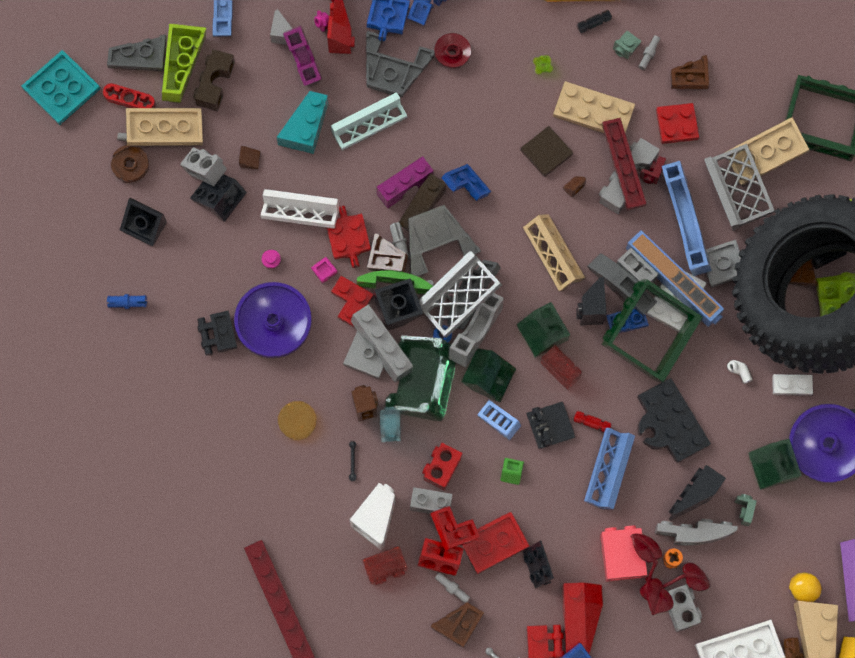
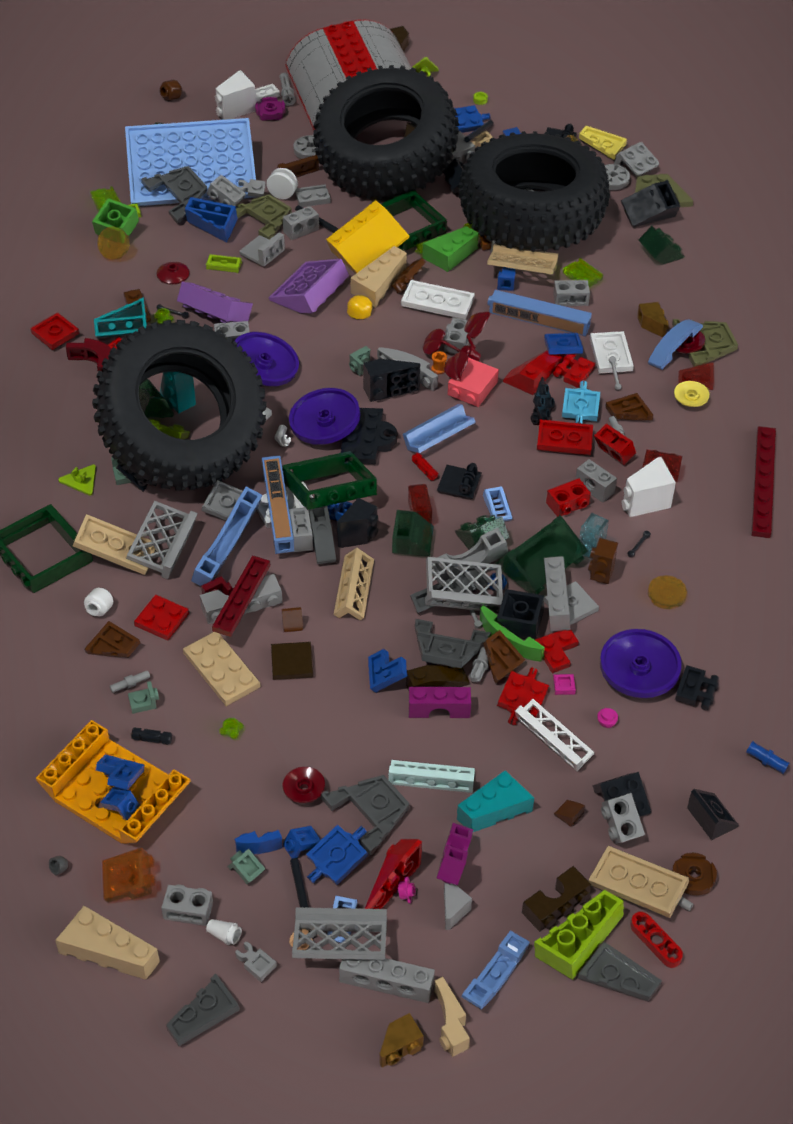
camera: 145 degrees left, 25 degrees down
(60, 87) = (724, 992): teal plate -> none
(451, 532) = (595, 444): red plate -> none
(506, 597) = (581, 404): none -> medium azure plate
(512, 471) = (513, 472): bright green slope -> none
(718, 410) = (324, 416): none -> dark purple dish
(734, 99) = (98, 602): none -> white head
(775, 464) = (314, 369): clear green slope -> none

